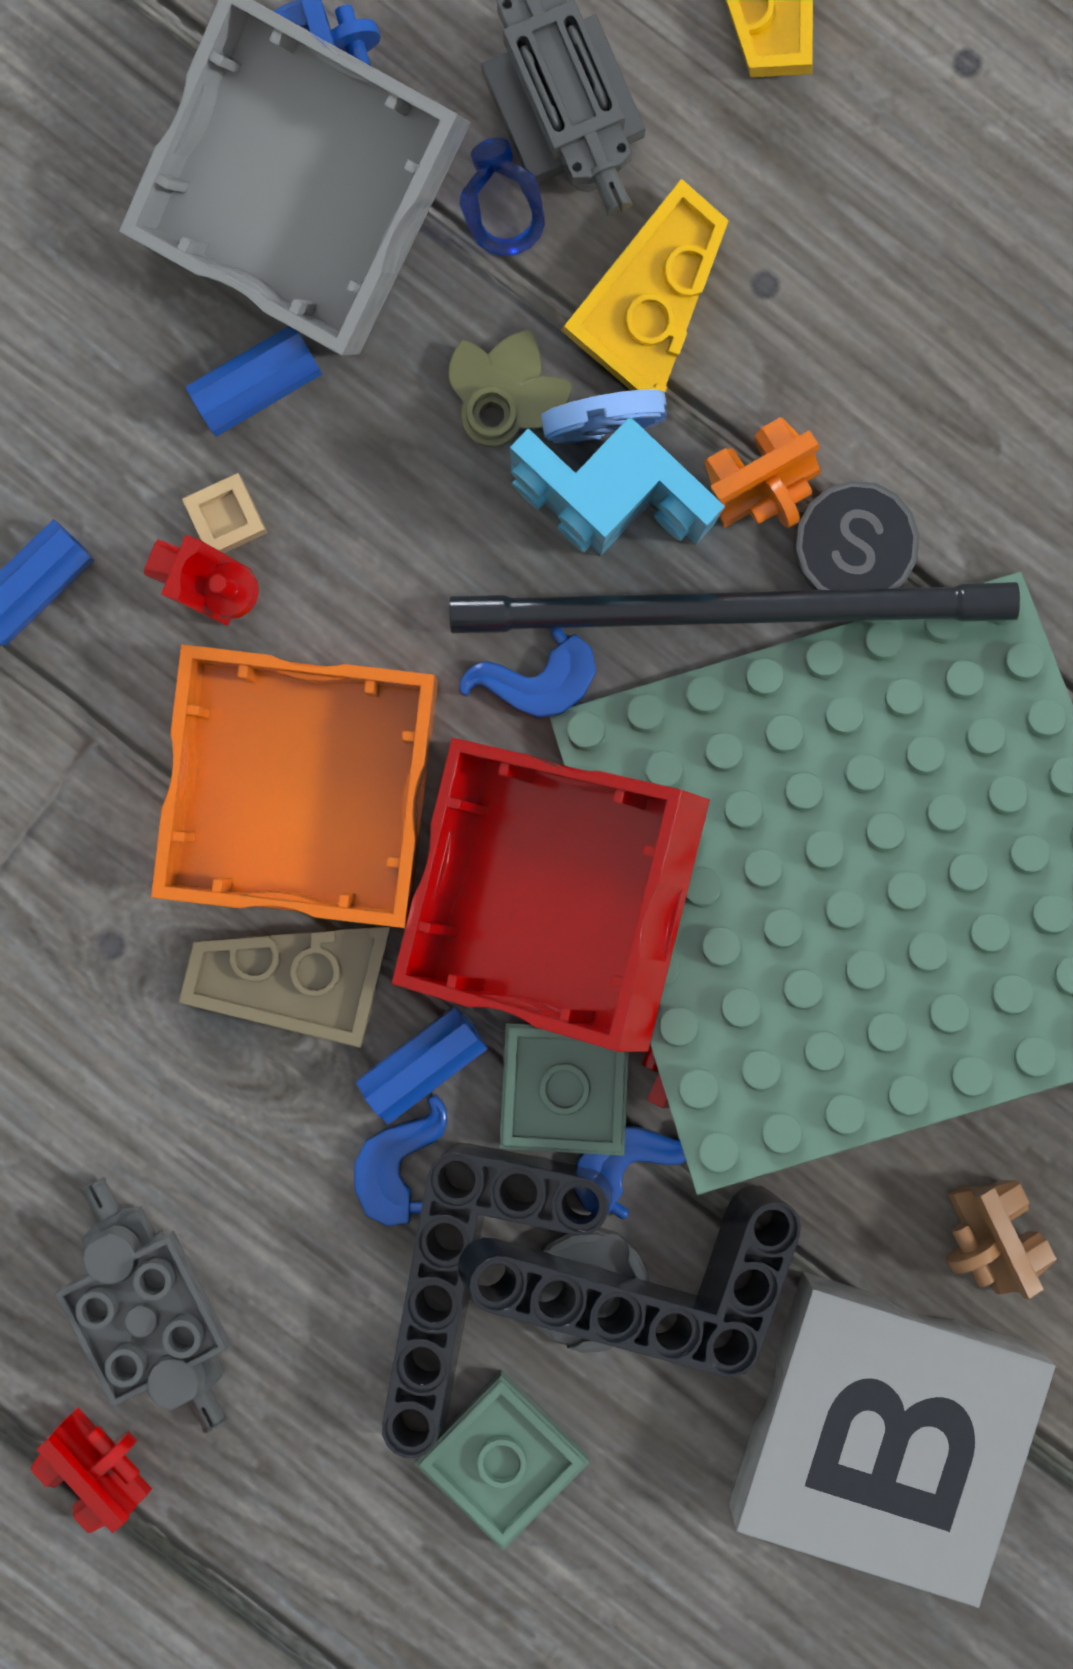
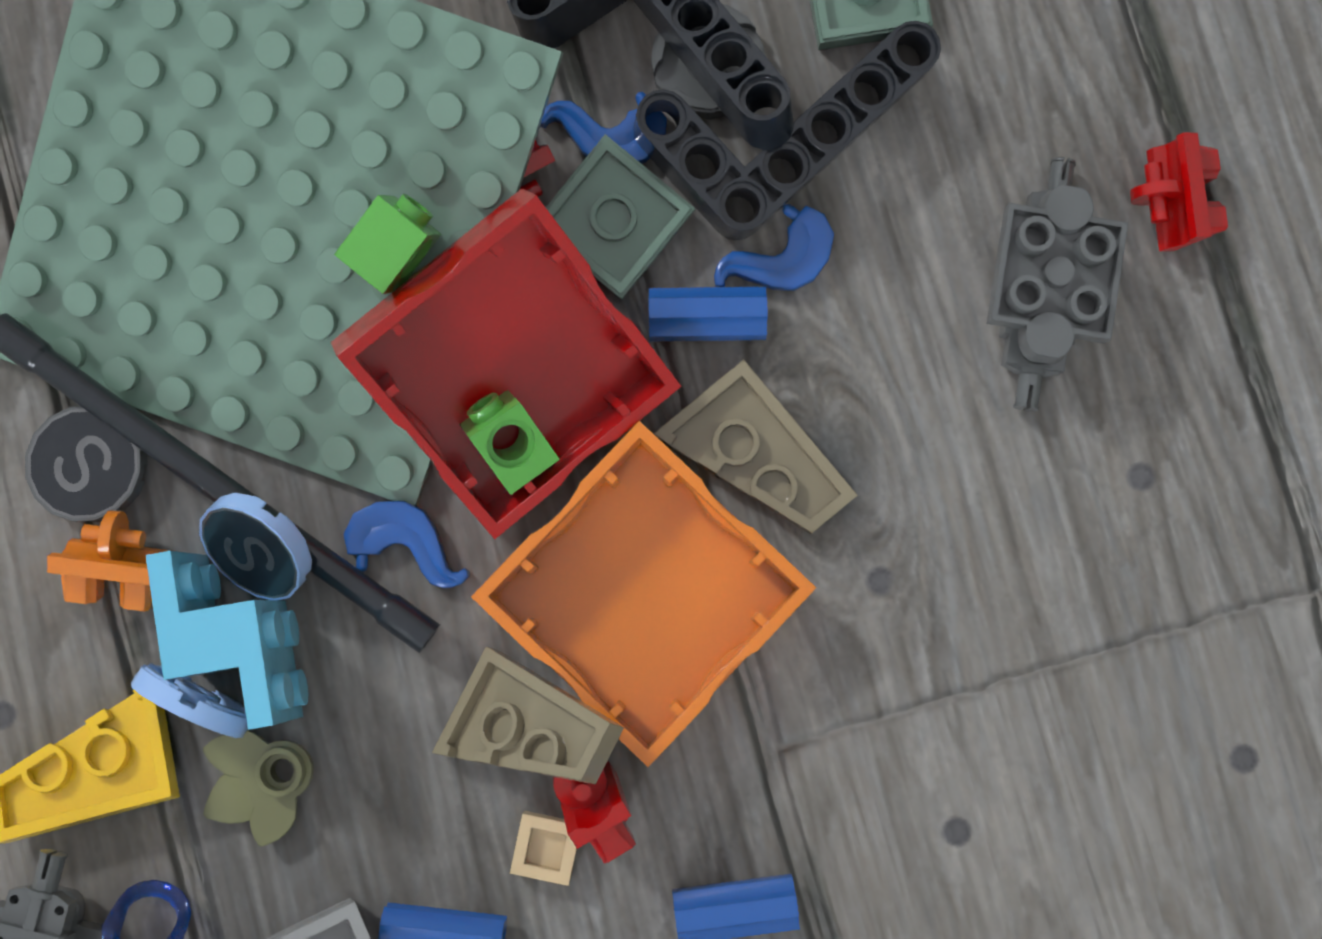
camera: 140 degrees left, 5 degrees down
(310, 605) = (526, 724): none -> dark tan wing
(480, 825) = (524, 458): none -> bright green brick
(651, 581) = (254, 547): none -> tile
(722, 921) = (389, 241): none -> bright green brick

